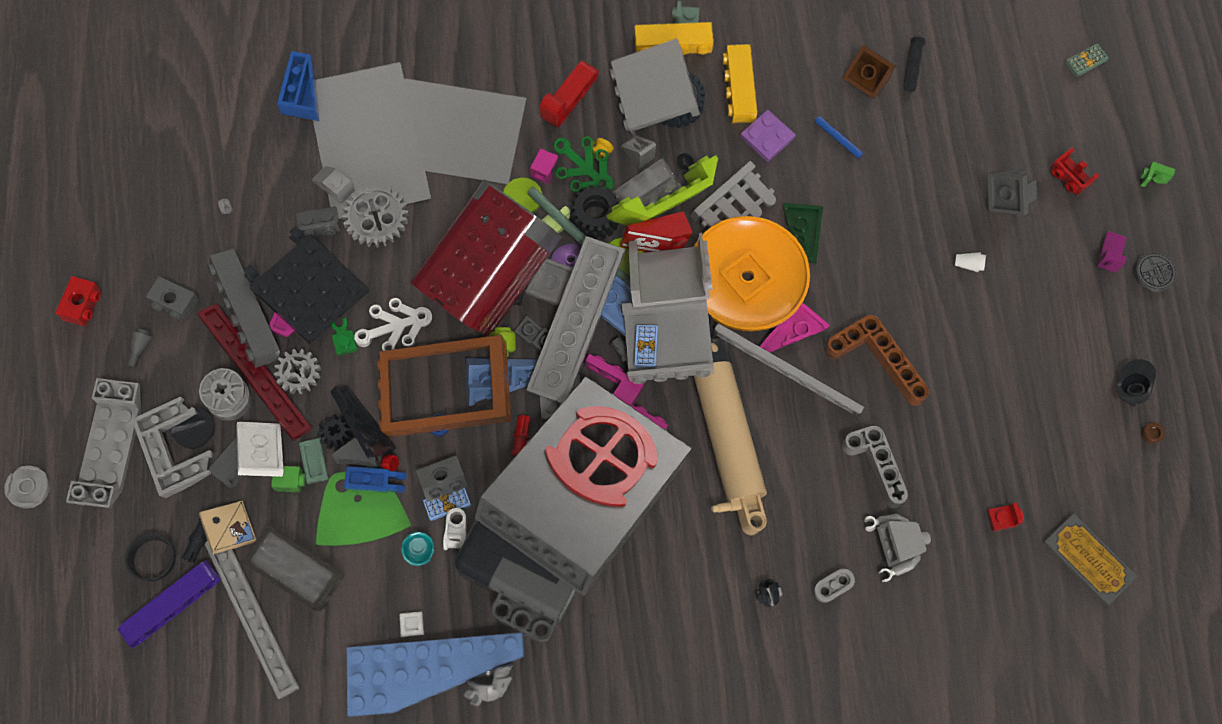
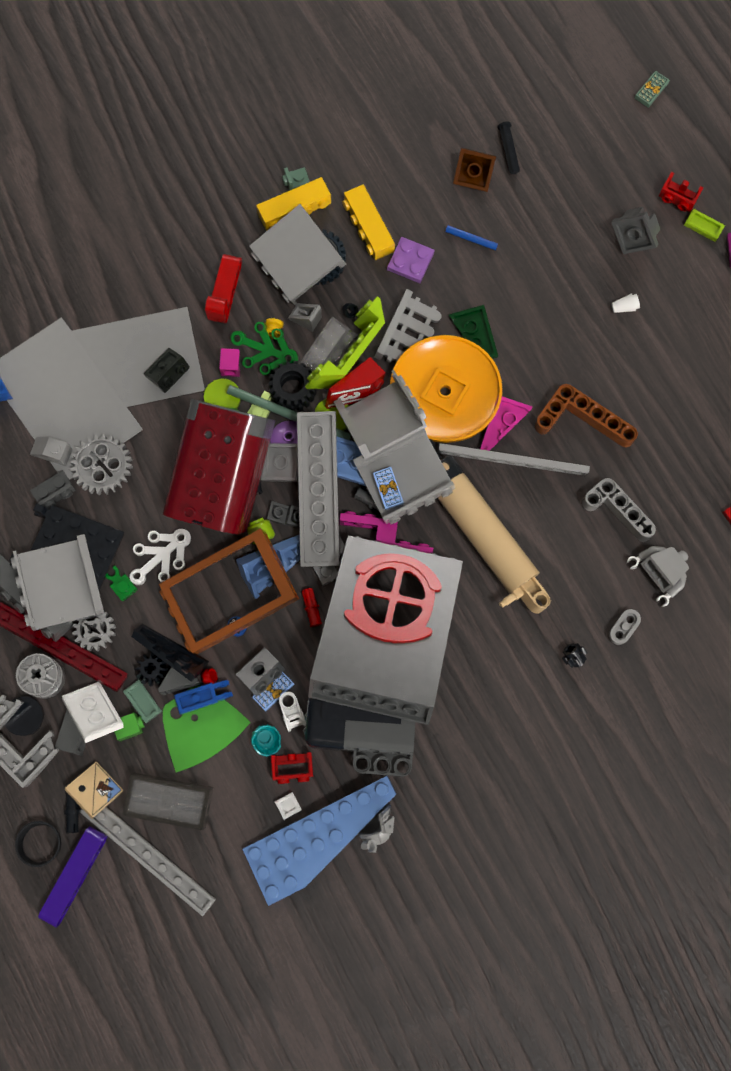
camera: 20 degrees left, 5 degrees up
(280, 311) = (57, 584): none -> light grey panel
(433, 578) = (292, 759): none -> red window
(479, 150) = (167, 369): none -> pearl dark grey bracket
(1086, 214) = (704, 225): none -> lime tile

